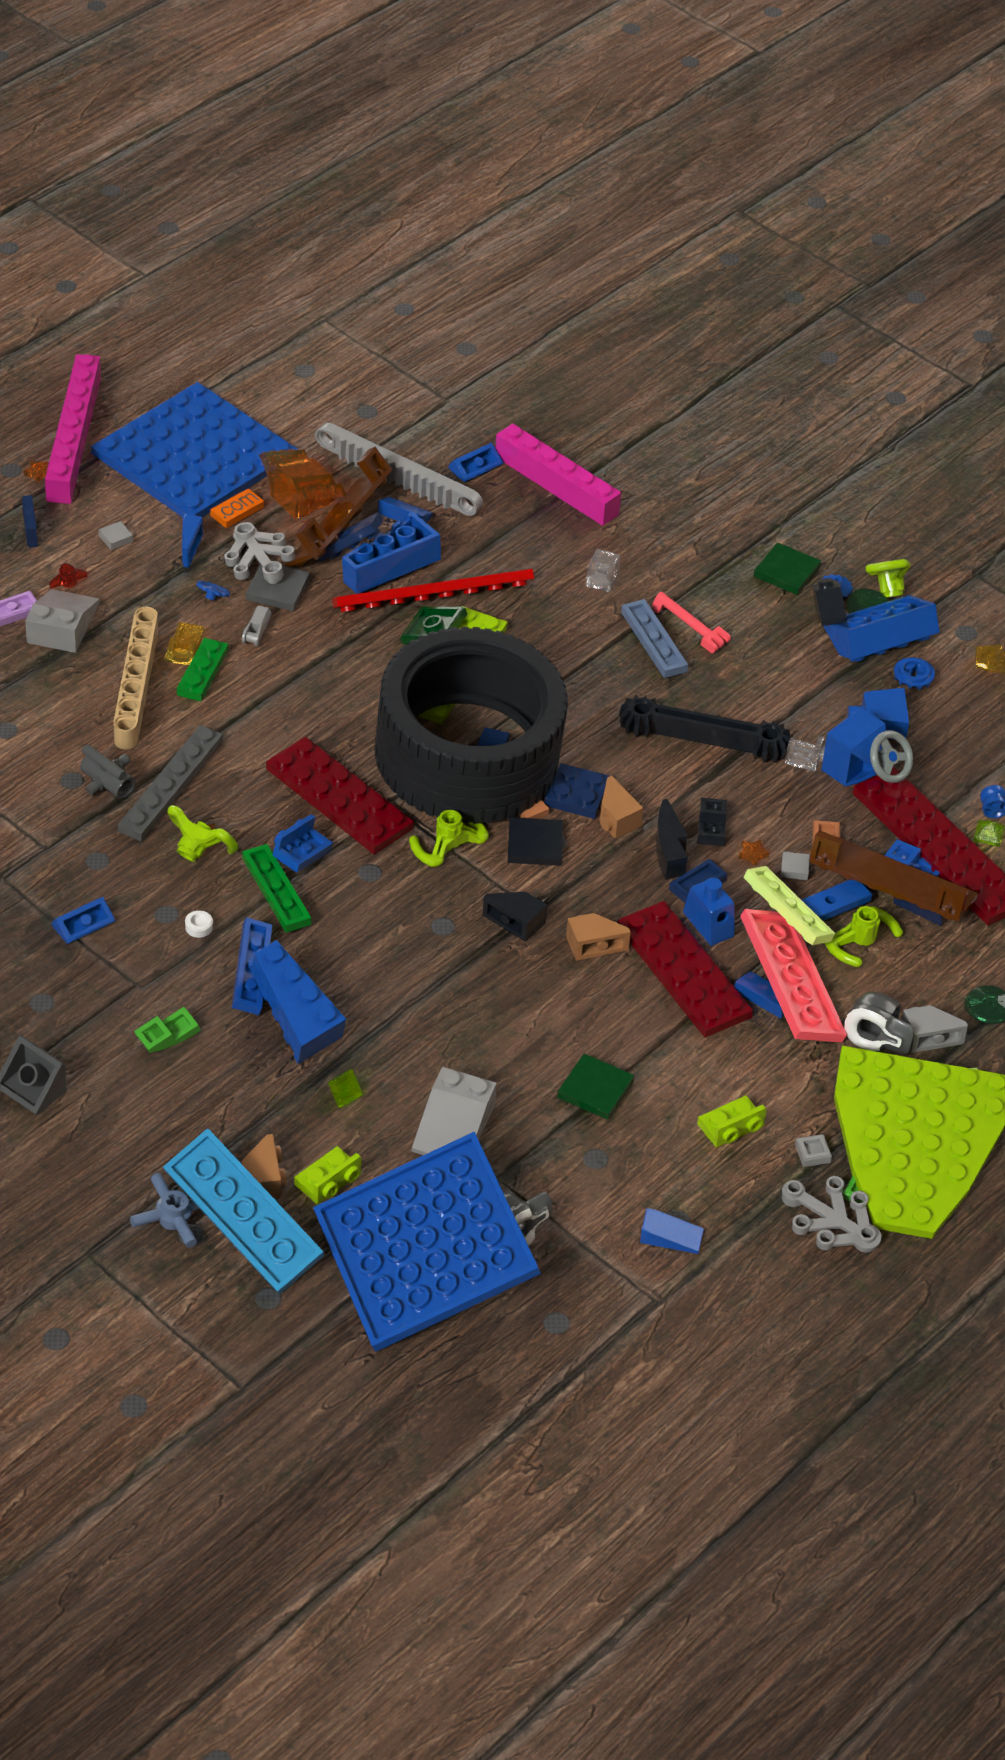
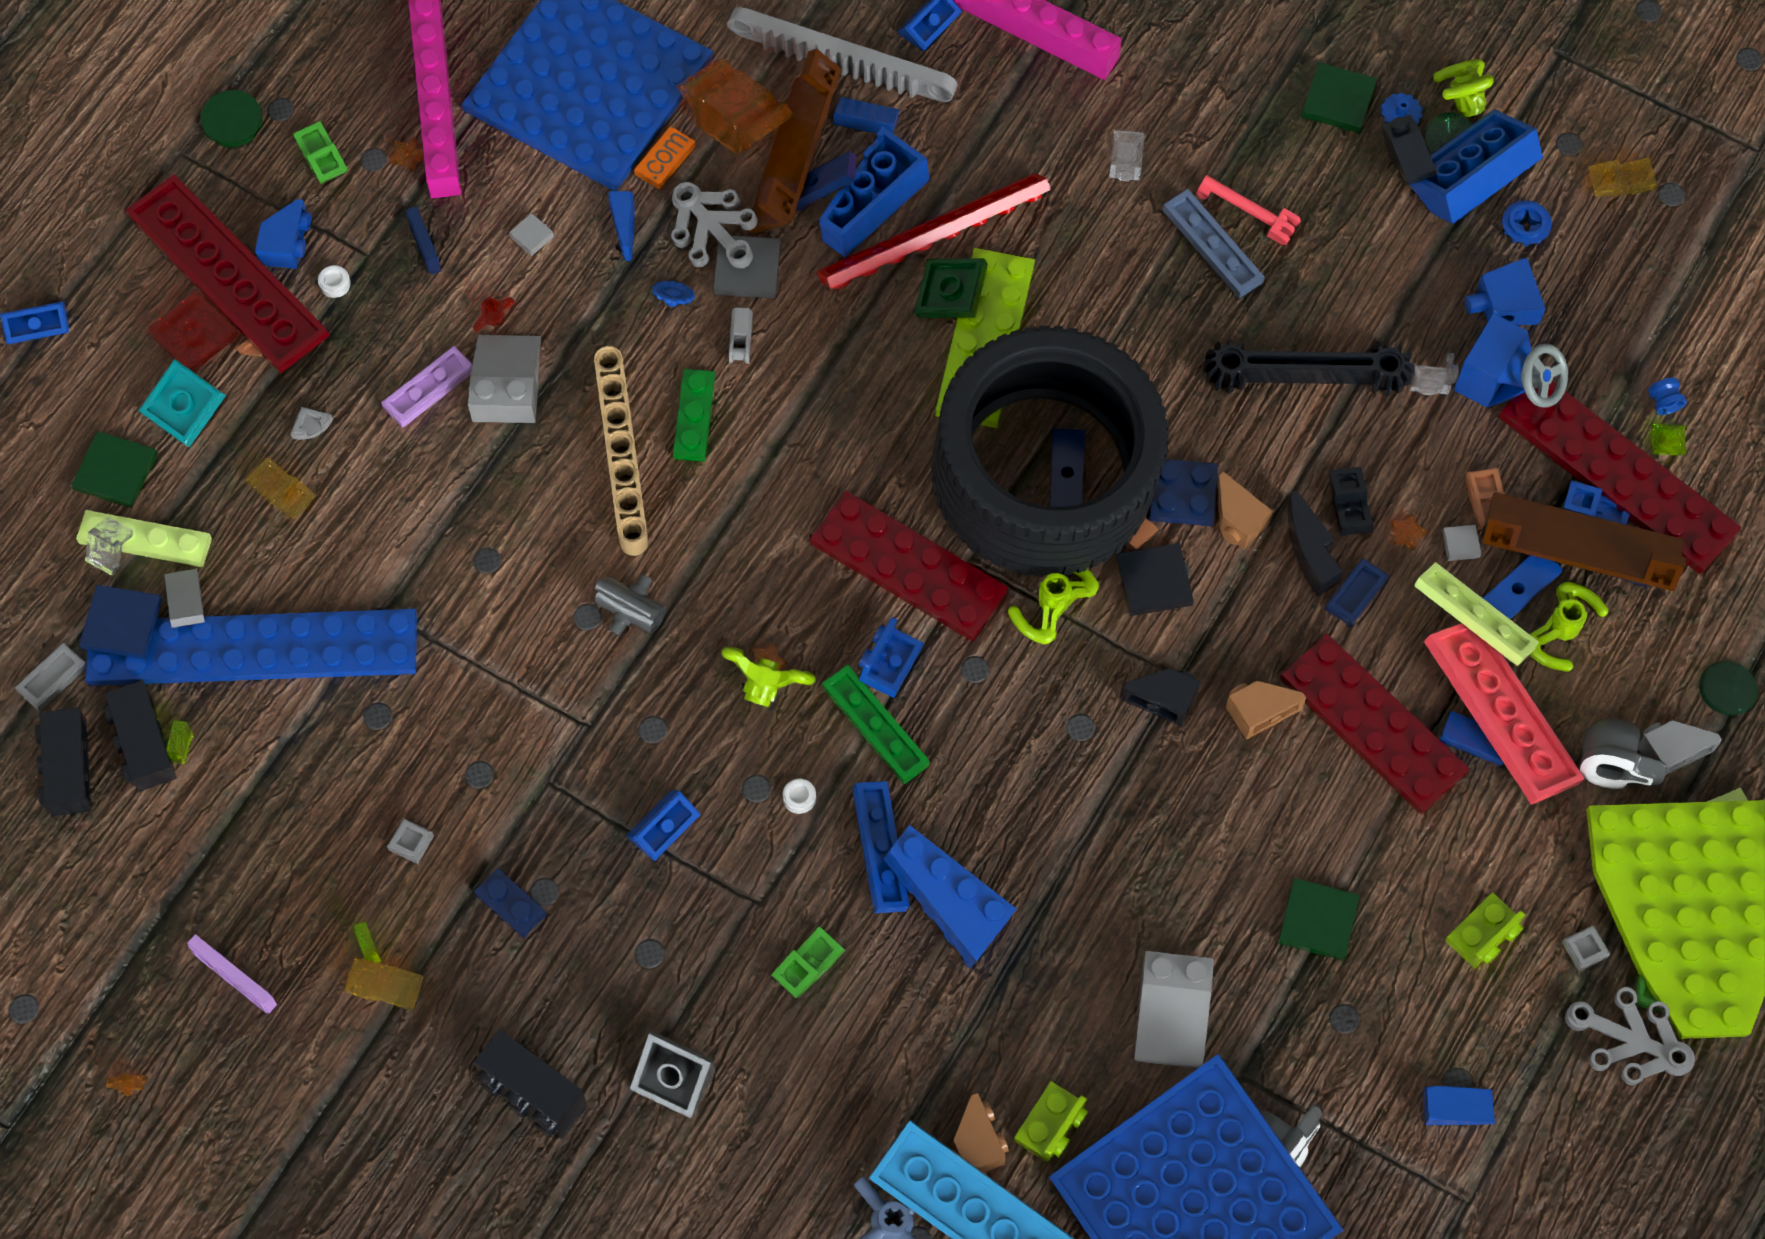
camera: 10 degrees left, 20 degrees up
(170, 783) = (706, 595): dark grey plate -> none
(184, 644) = (662, 383): clear yellow slope -> none
(345, 1088) = (1037, 996): clear neon green slope -> none
(710, 911) = (1386, 639): blue torso -> none

